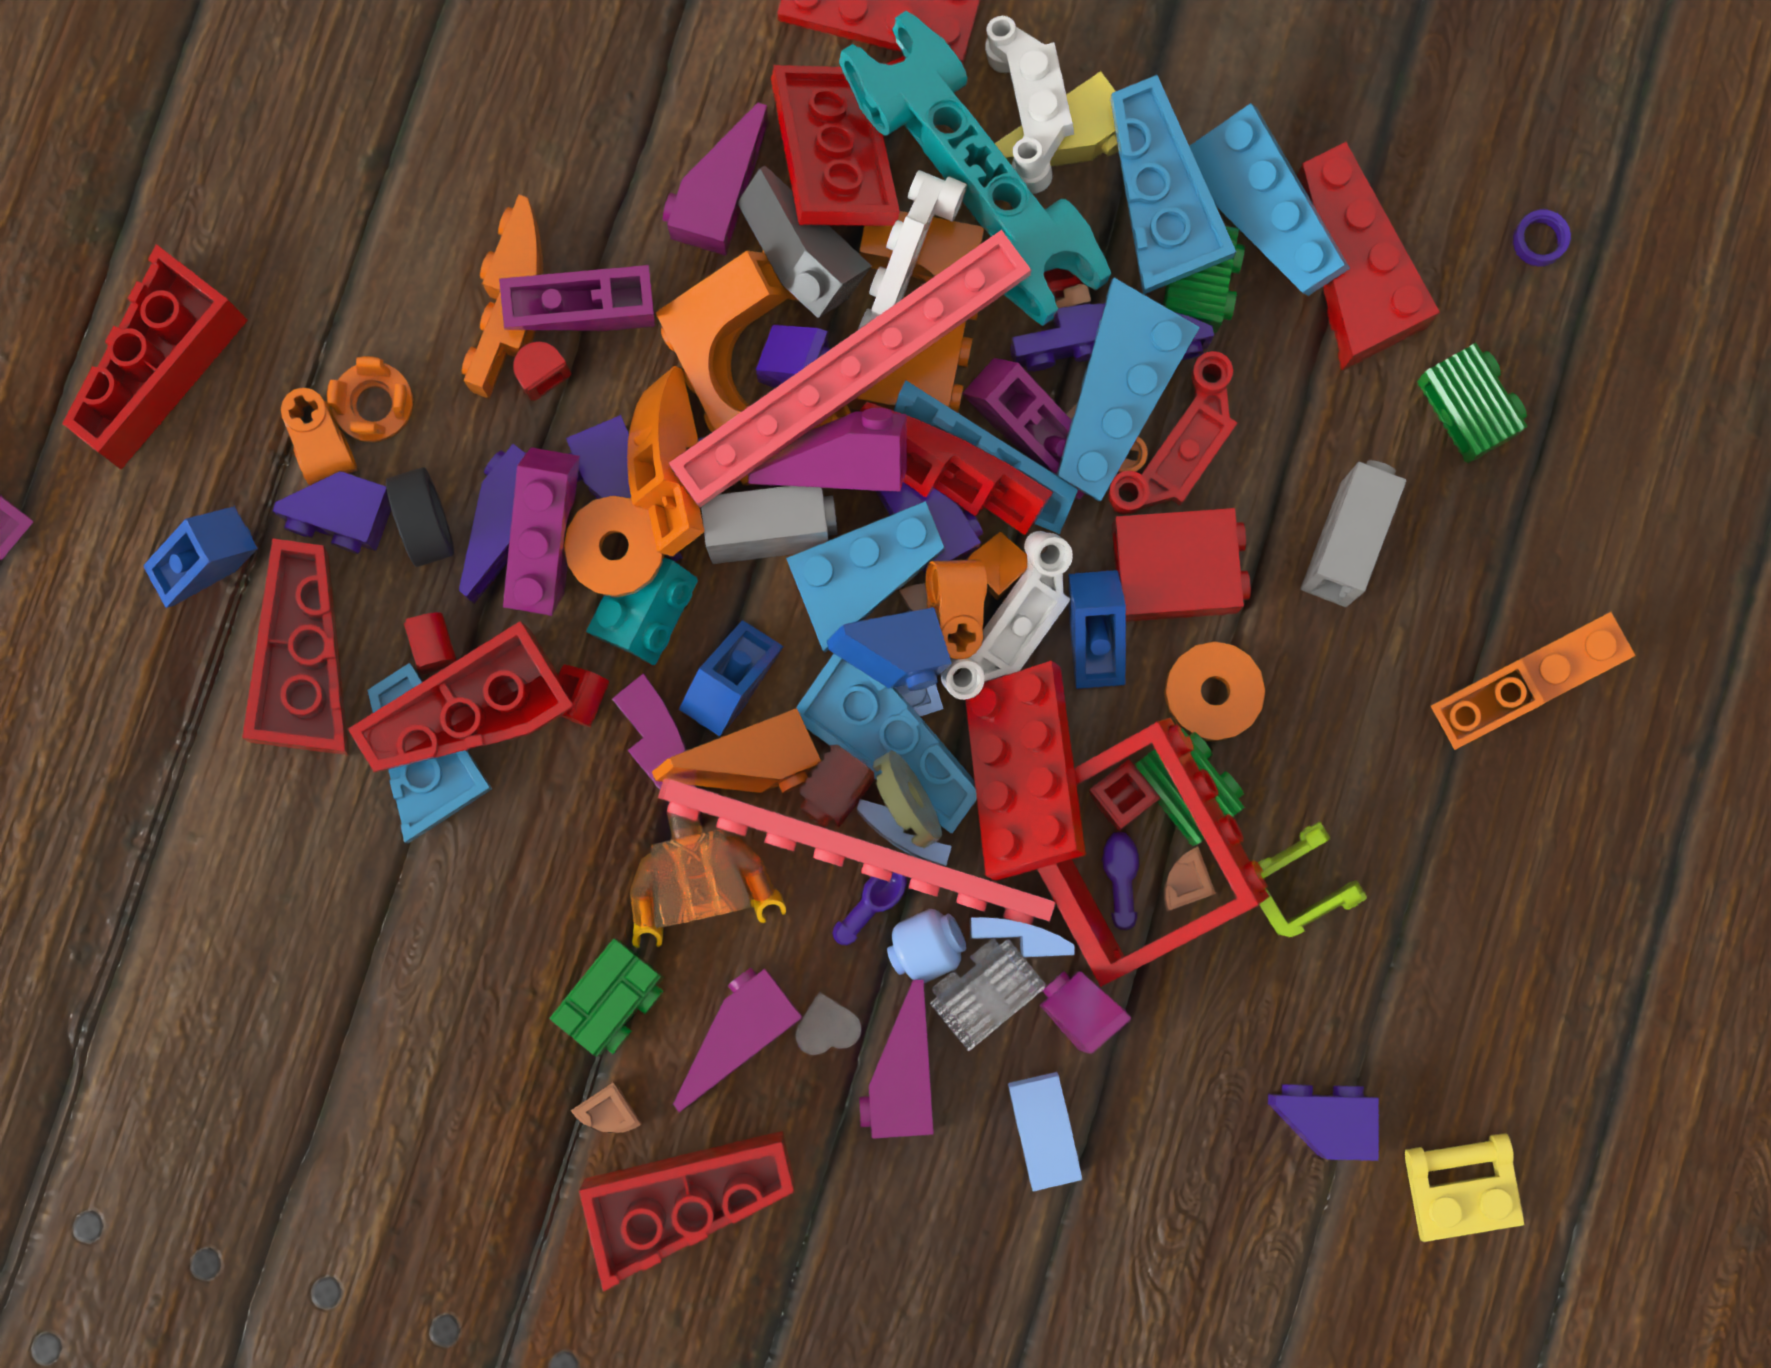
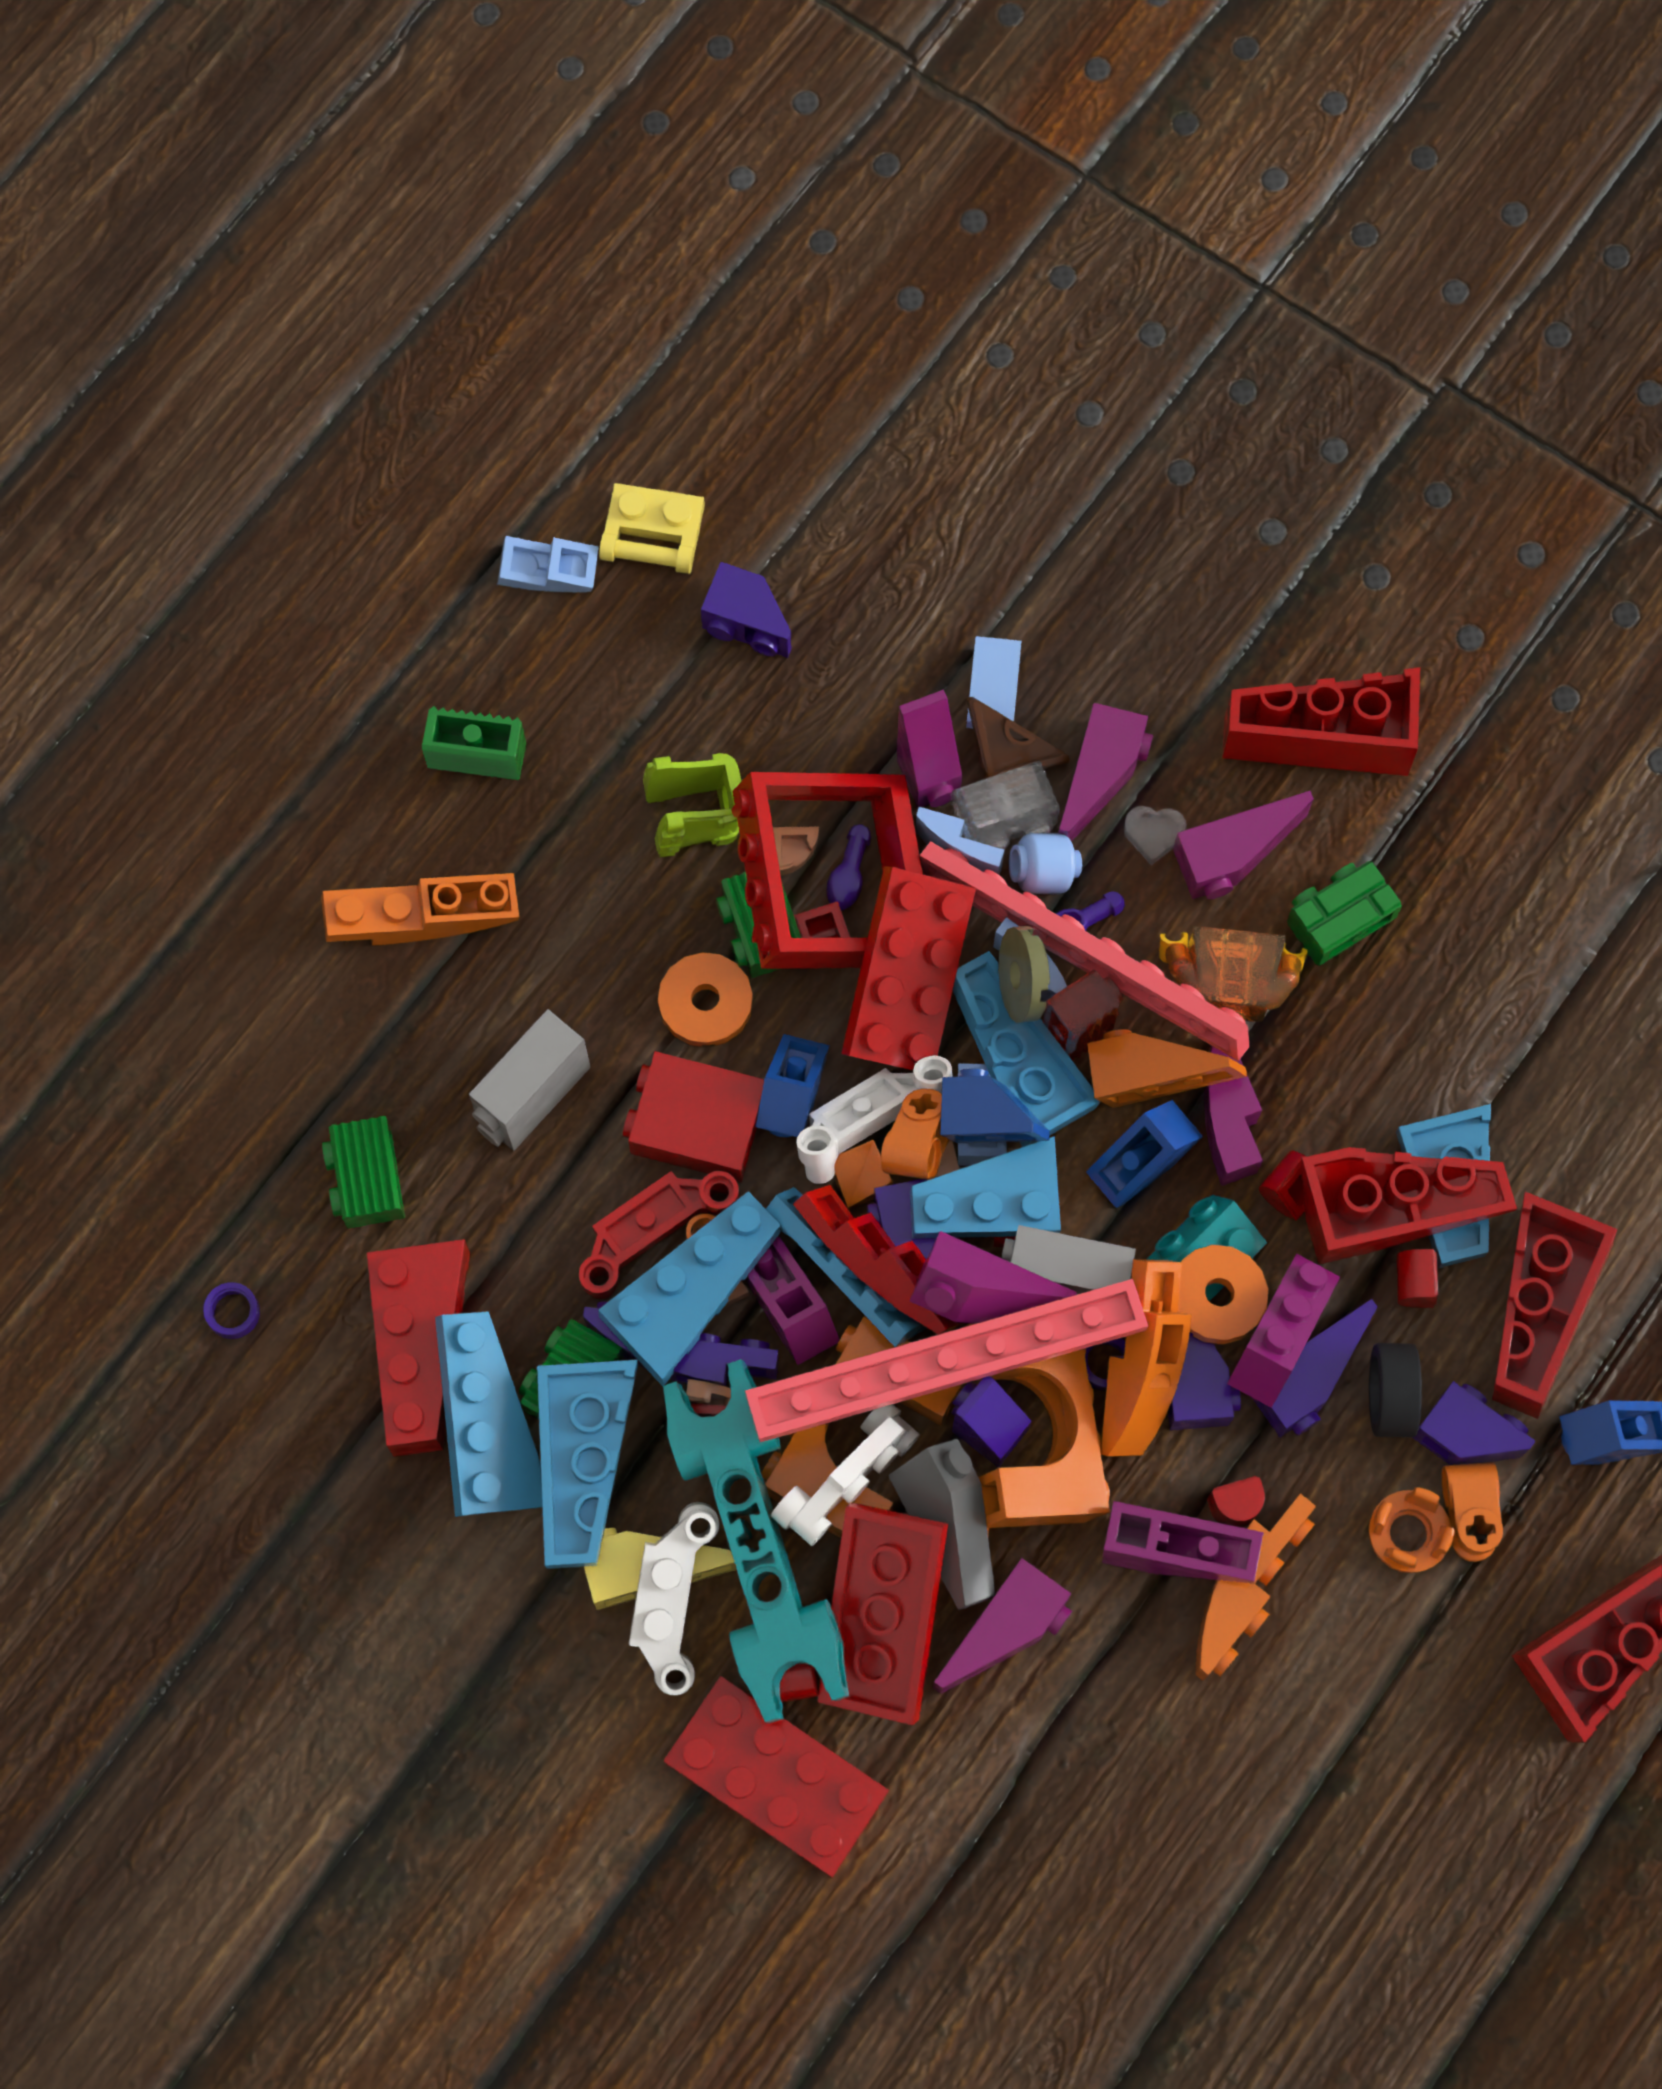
camera: 160 degrees left, 10 degrees down
(607, 1111) = (1371, 825): nougat tile -> none
(1004, 1063) = (1007, 745): none -> reddish brown tile
(1550, 870) = (474, 743): none -> green brick
(1556, 1107) = (547, 567): none -> light blue slope

